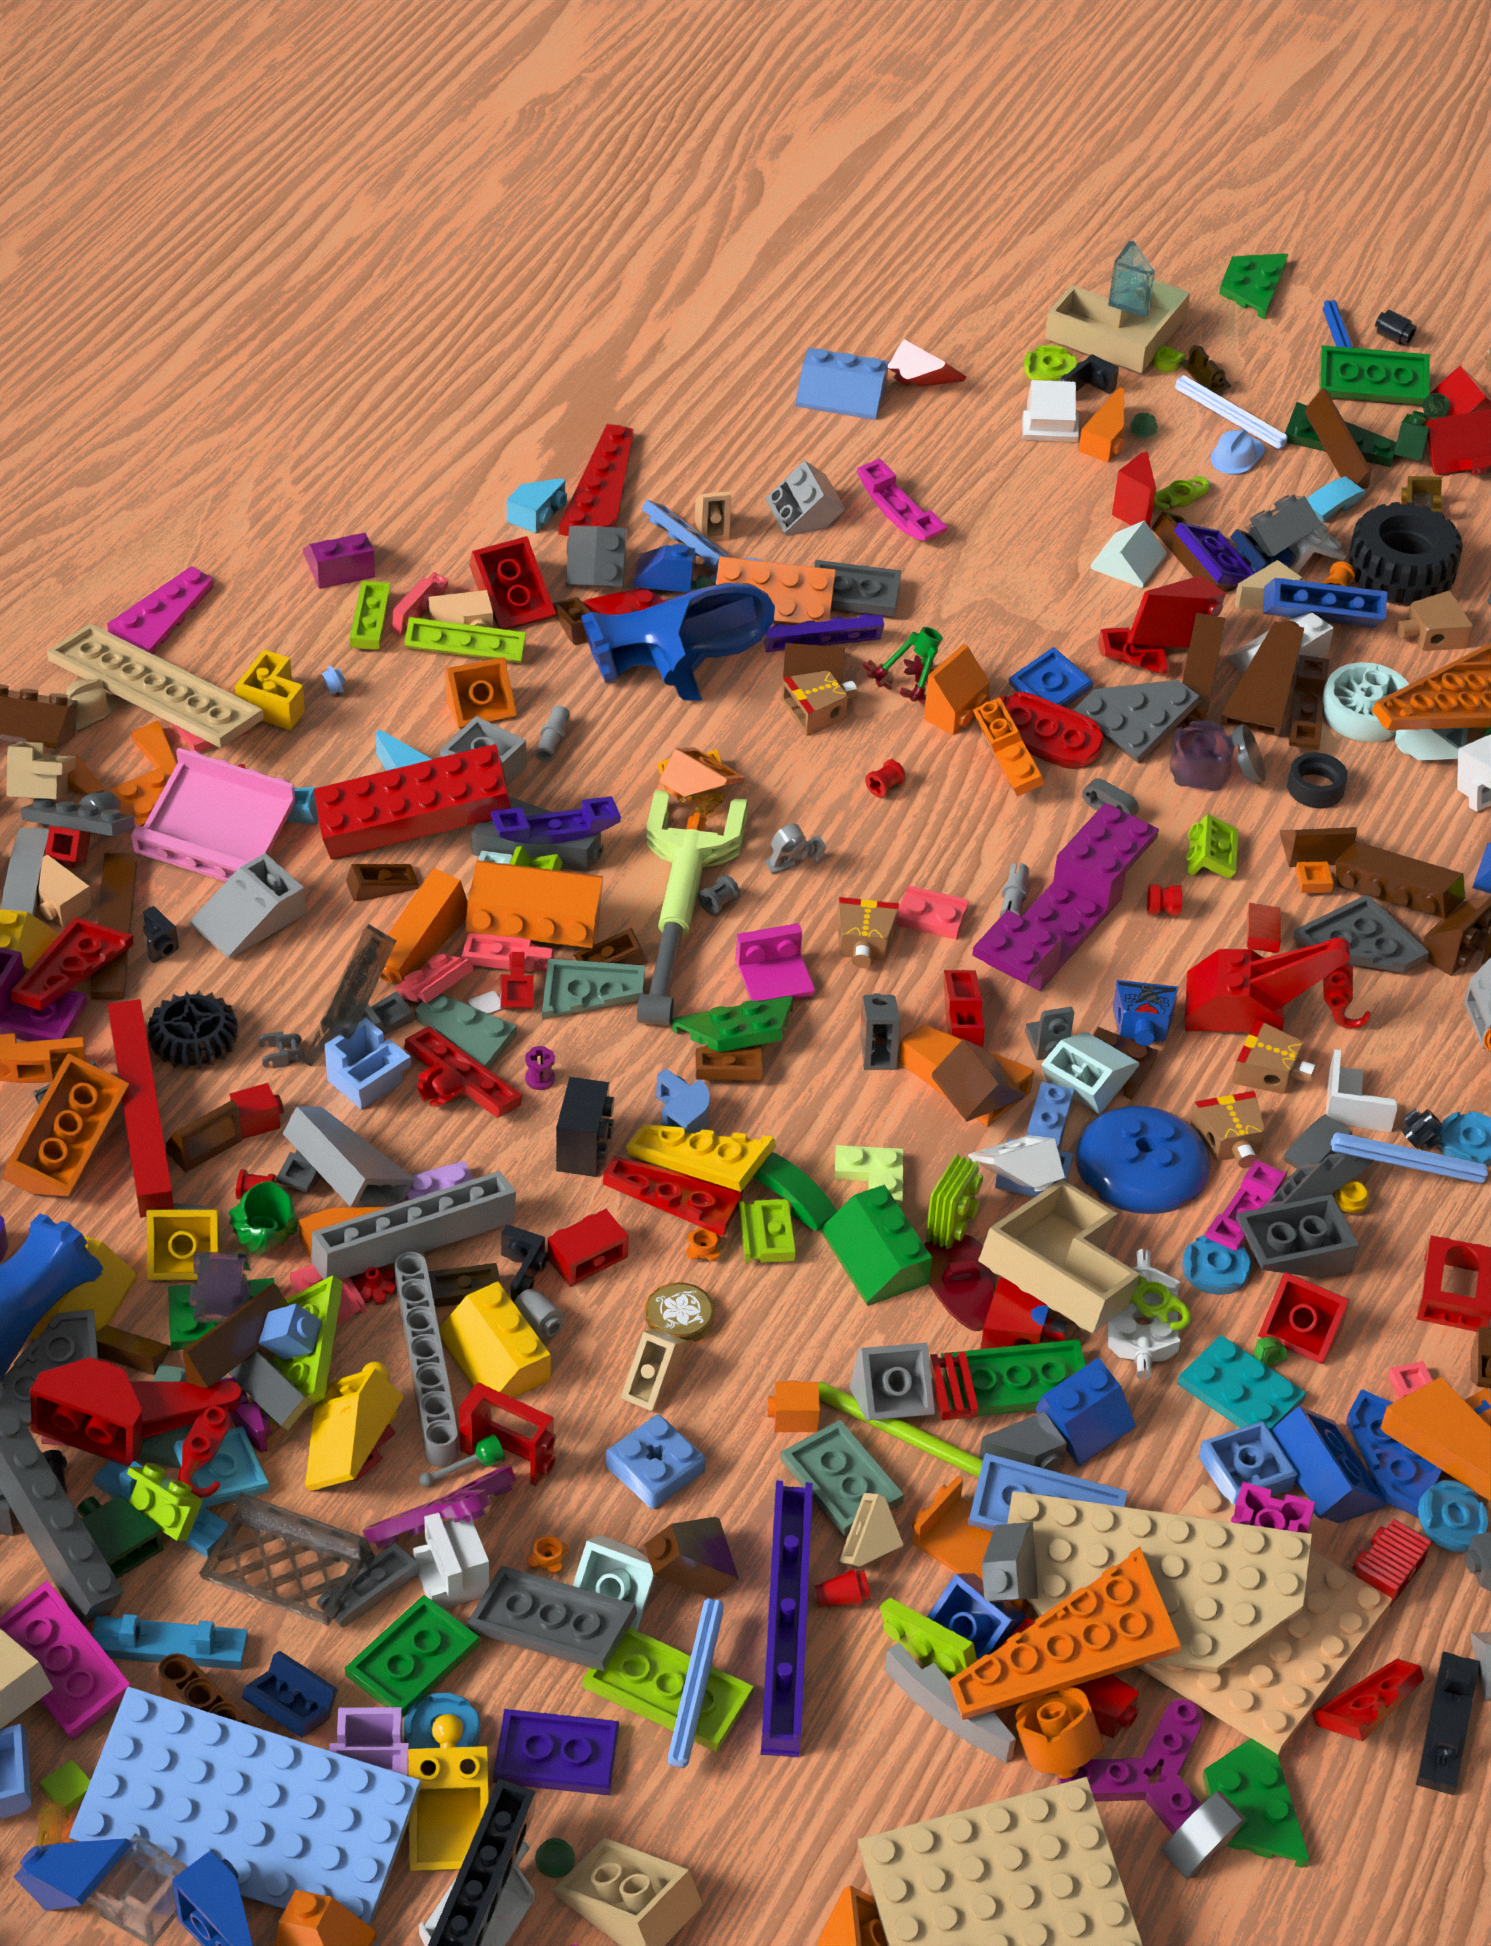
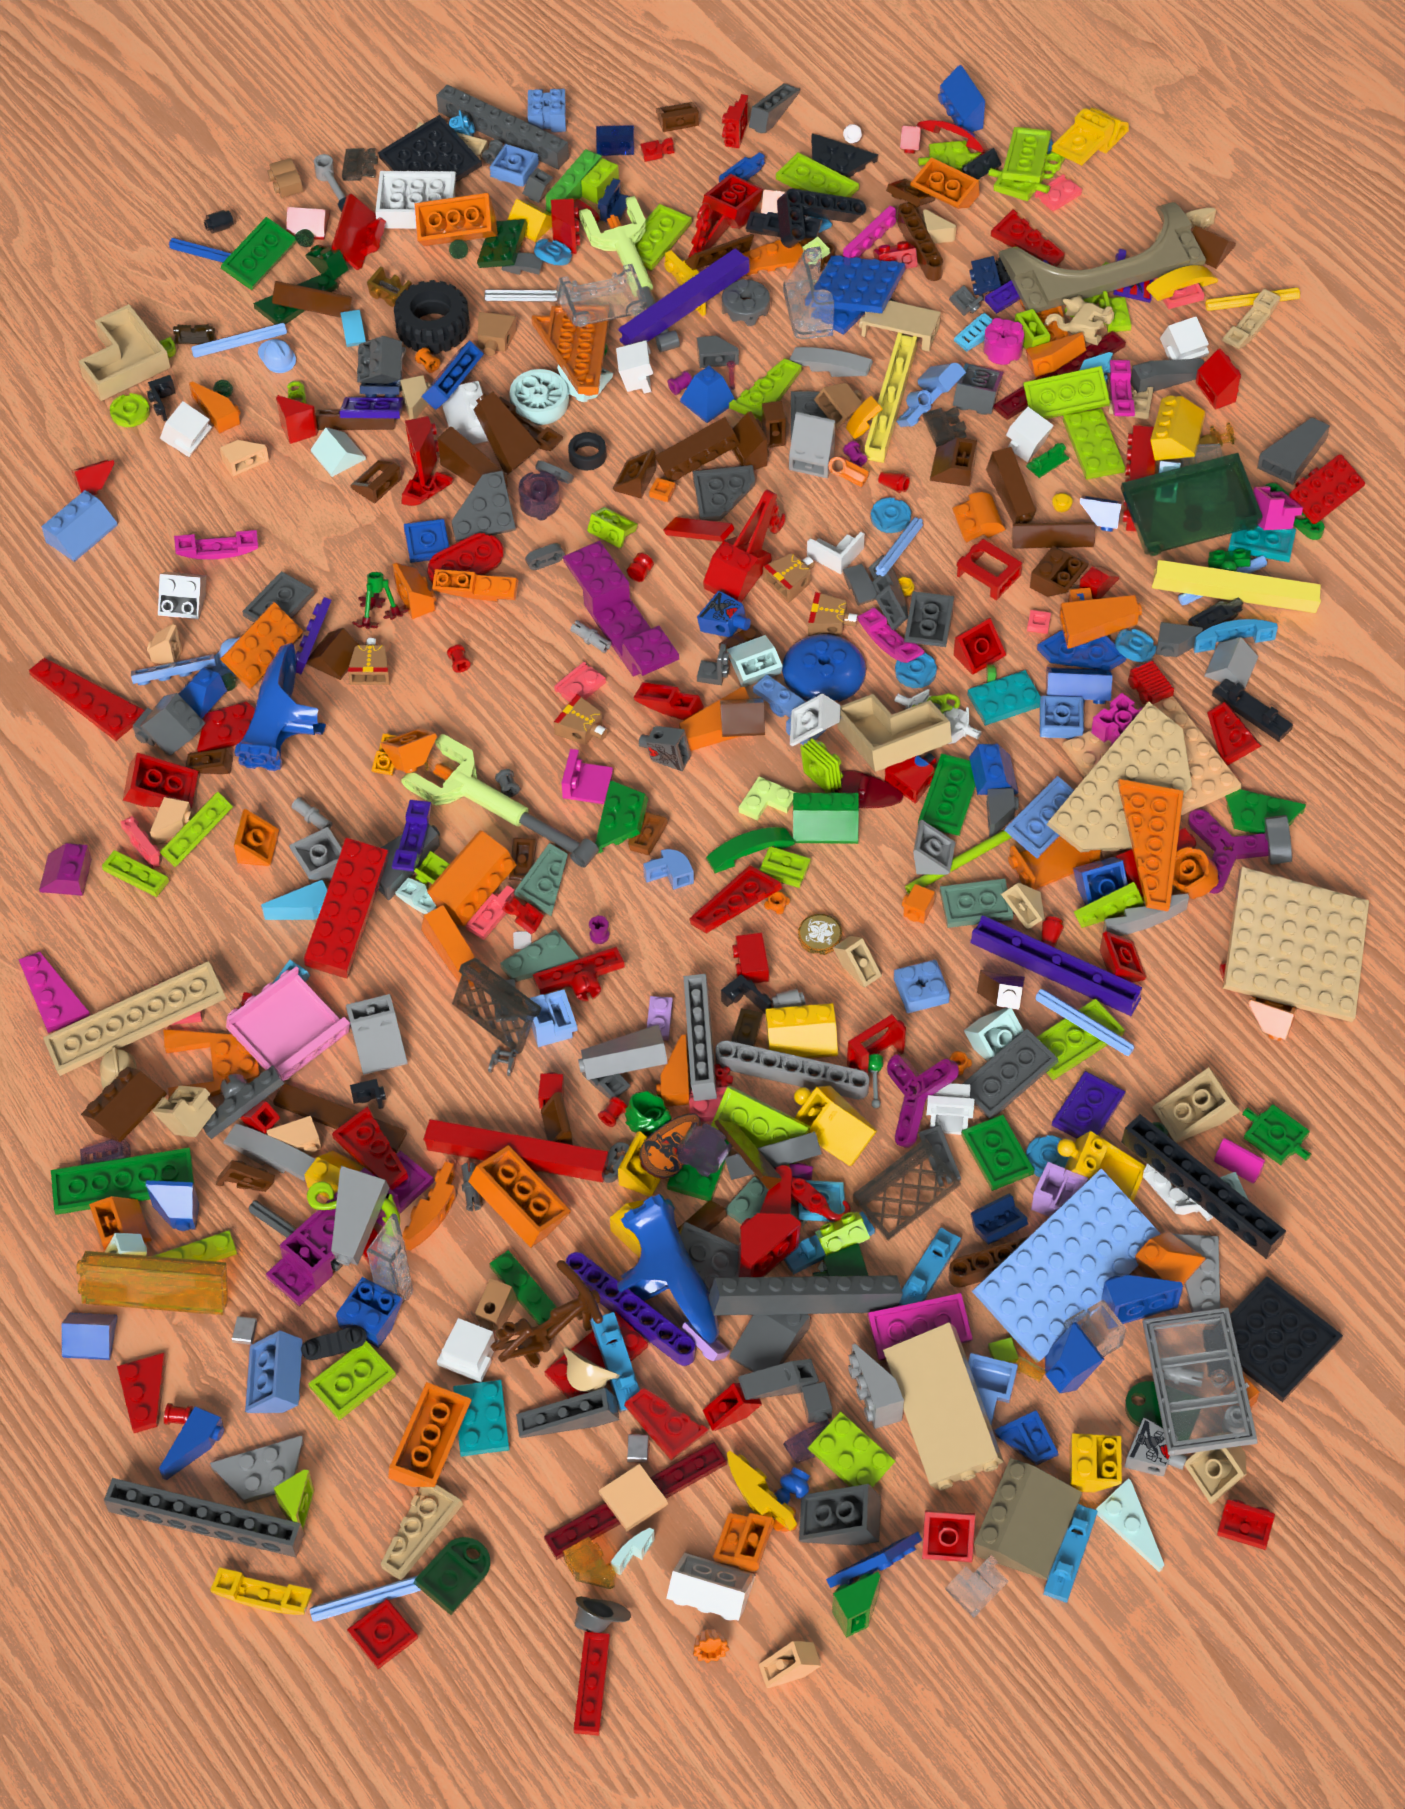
camera: 60 degrees left, 10 degrees up
(173, 1034) = (454, 1093): black gear -> none
(206, 1236) = (659, 1150): none -> shield
(271, 688) = (184, 955): yellow brick -> none
(290, 1331) = (755, 1124): medium blue brick -> none
(334, 680) = (188, 916): light blue plate -> none
(380, 880) = (385, 957): reddish brown slope -> none
(434, 978) = (495, 954): coral plate -> none
(536, 503) = (86, 741): medium azure slope -> none
(584, 1127) = (666, 922): black piece -> none
(702, 1154) = (724, 867): yellow wing -> none
(791, 845) = (498, 729): light grey piece -> none
(847, 1697) = (1121, 958): none -> red slope
(950, 1364) = (948, 820): red tile -> none
(1010, 1564) = (1093, 842): dark grey slope -> none
(1051, 476) = (243, 455): none -> light nougat slope
(1109, 607) = (382, 484): none -> reddish brown tile
(1131, 281) = (114, 325): clear light blue slope -> none
(1253, 280) = (119, 269): green wing -> none
(1422, 1128) = (877, 531): black gear -> none

